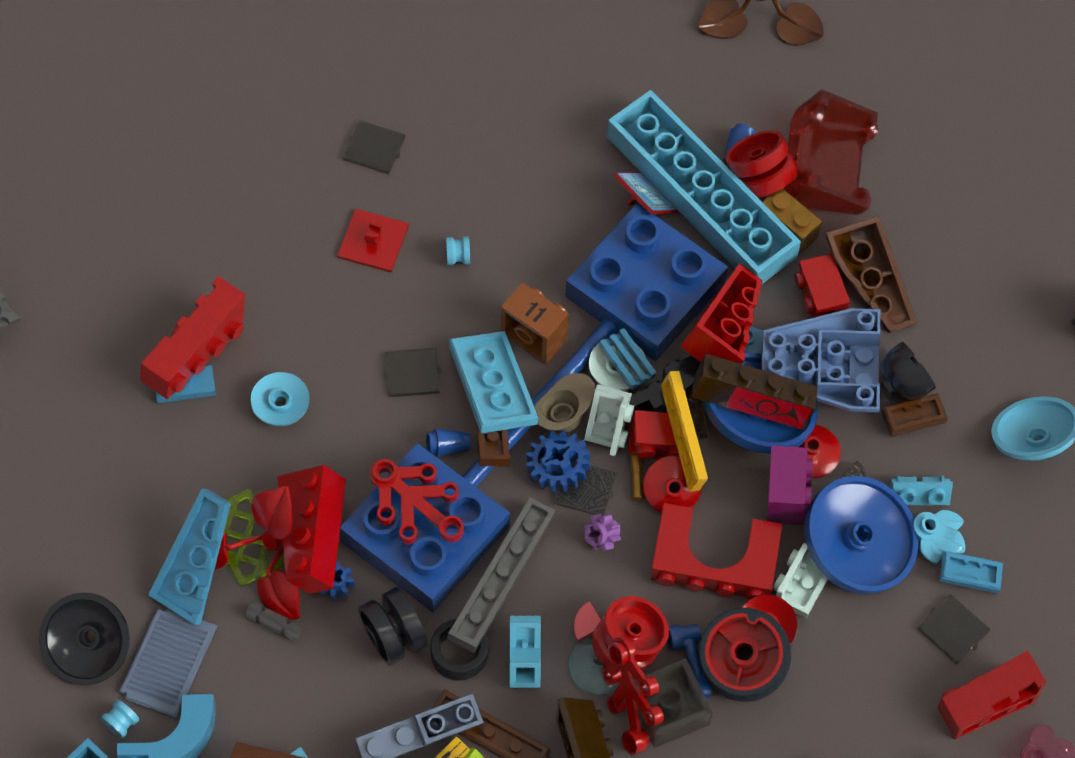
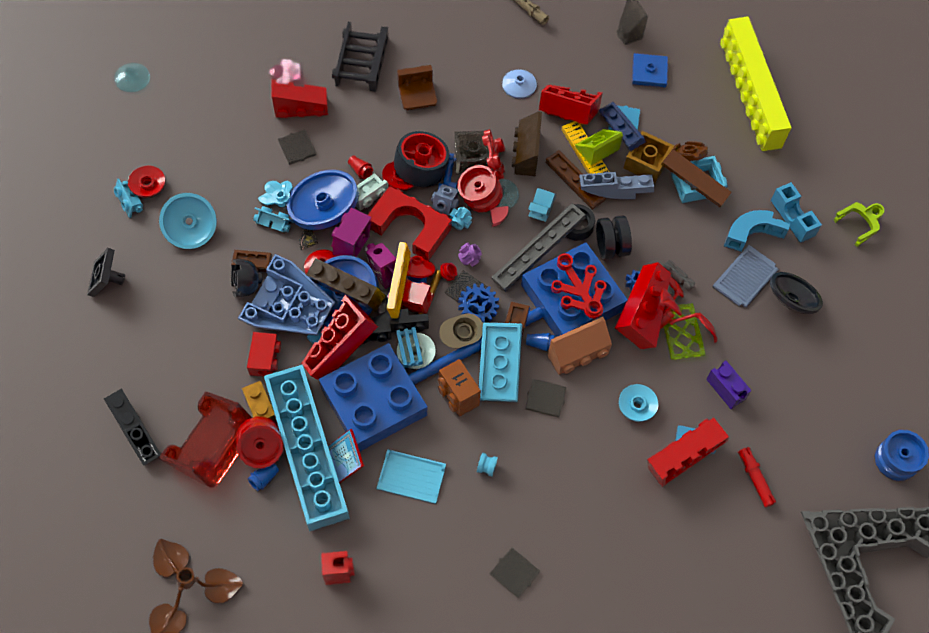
camera: 160 degrees left, 0 degrees up
(96, 367) = (756, 476): none -> red pin
(119, 719) = (782, 249): medium azure wheel -> none
(157, 467) = (728, 385): none -> dark purple brick
(191, 562) = (721, 312): dark azure wing -> none
(373, 240) = (539, 500): red piece -> none
(389, 440) = (580, 346): none -> nougat slope
(551, 212) = (411, 476): none -> medium azure piece
(592, 63) = (337, 567): none -> red brick
(608, 417) = (434, 311): light aqua bracket -> none
(623, 498) = (448, 271): none -> red plate
(641, 584) = (461, 218): none -> medium azure gear
(684, 613) = (445, 199): none -> sand blue brick
(727, 467) = (378, 259): none -> magenta torso
(835, 621) = (362, 168): none -> red cone
(870, 266) = (226, 355): reddish brown wedge -> none
(935, 146) = (132, 427): none -> black slope
(971, 572) = (271, 166): dark azure plate -> none

